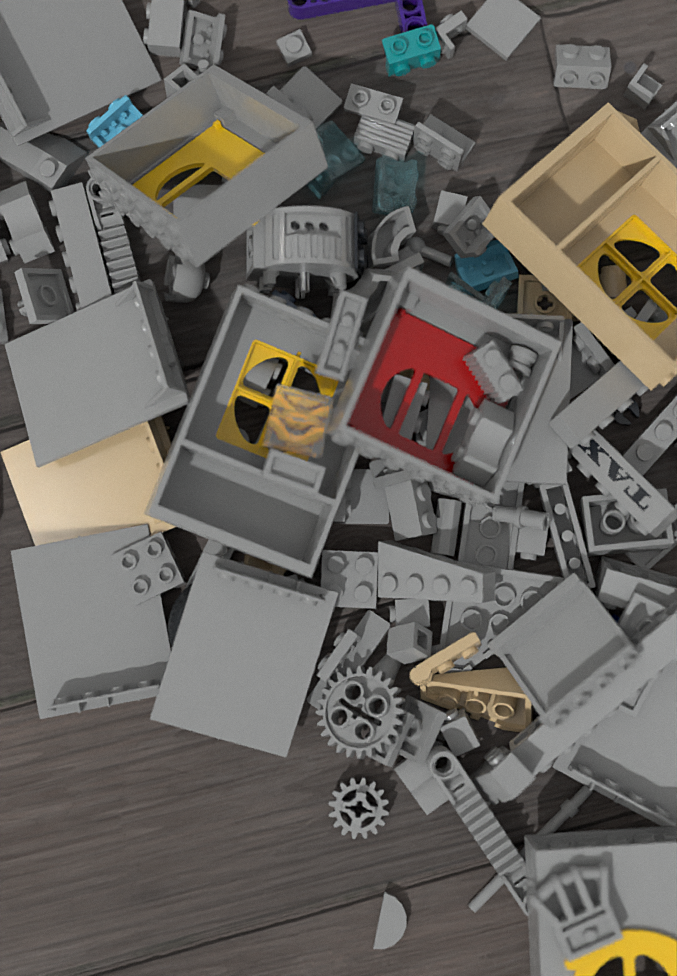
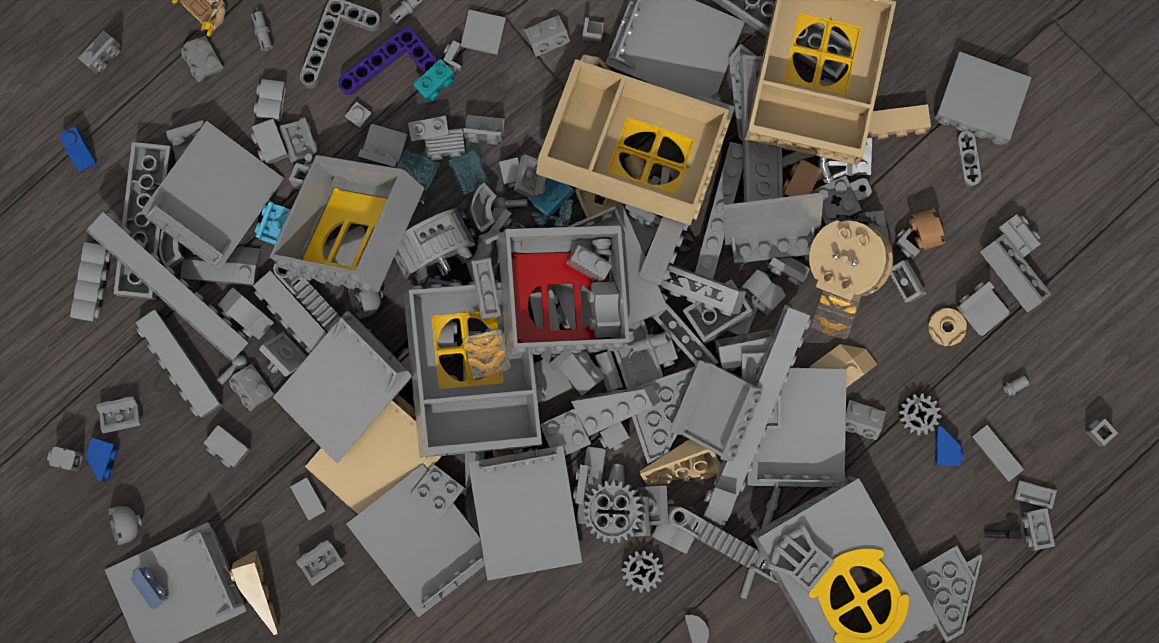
camera: 30 degrees left, 0 degrees up
(293, 472) = (499, 386): light grey tile -> none
(411, 643) = (623, 454): light grey brick -> none
(443, 660) = (648, 453): tan hinge -> none
(459, 732) = (680, 493): light grey brick -> none

